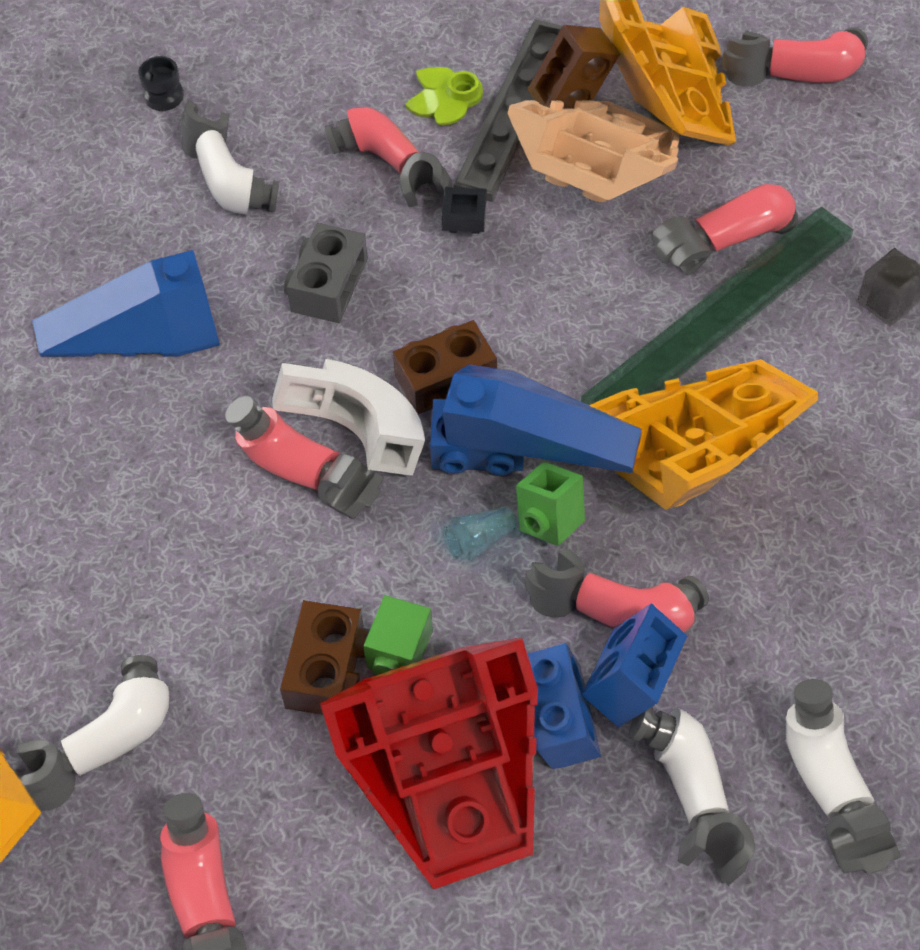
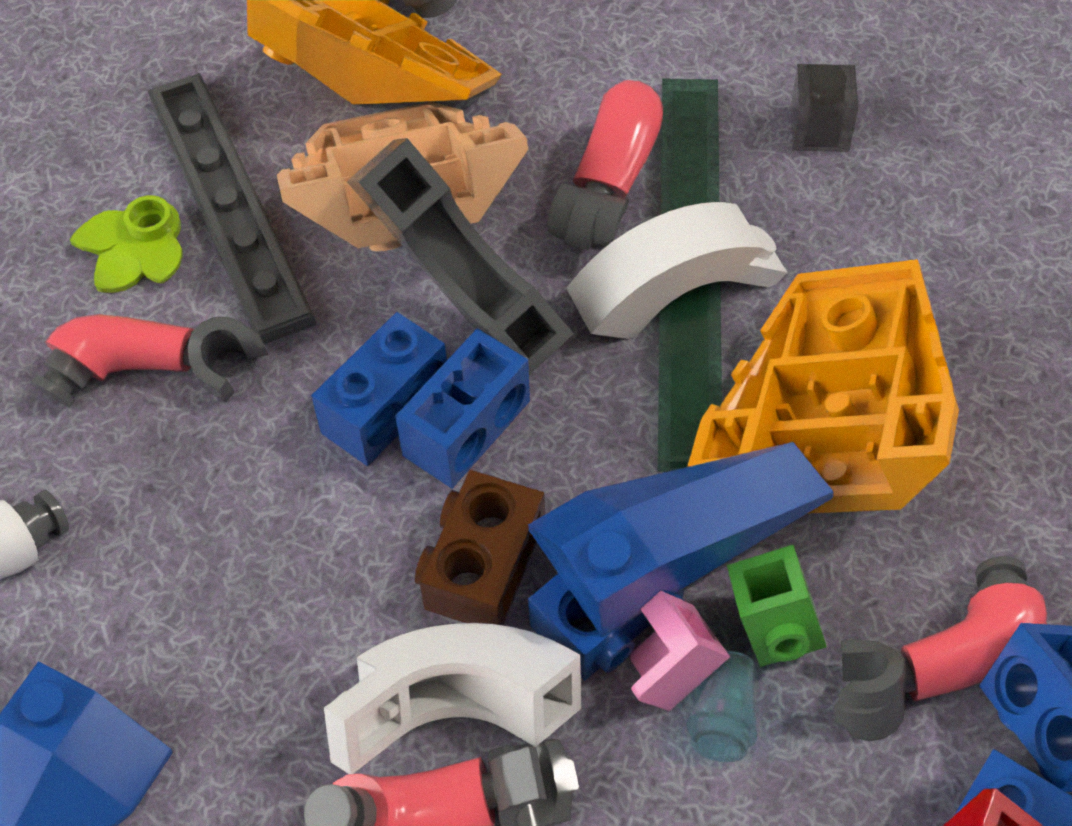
camera: 45 degrees left, 0 degrees up
(326, 272) = (228, 552): dark grey brick -> none
(464, 210) = (308, 353): black tile -> none
(481, 252) = (366, 392): none -> blue brick
(481, 486) = (676, 654): none -> bright pink panel
(508, 290) = (464, 408): none -> blue brick
(569, 174) = (434, 231): none -> dark grey arch
(574, 66) = (273, 109): reddish brown brick -> none
(702, 297) = (667, 258): none -> white arch

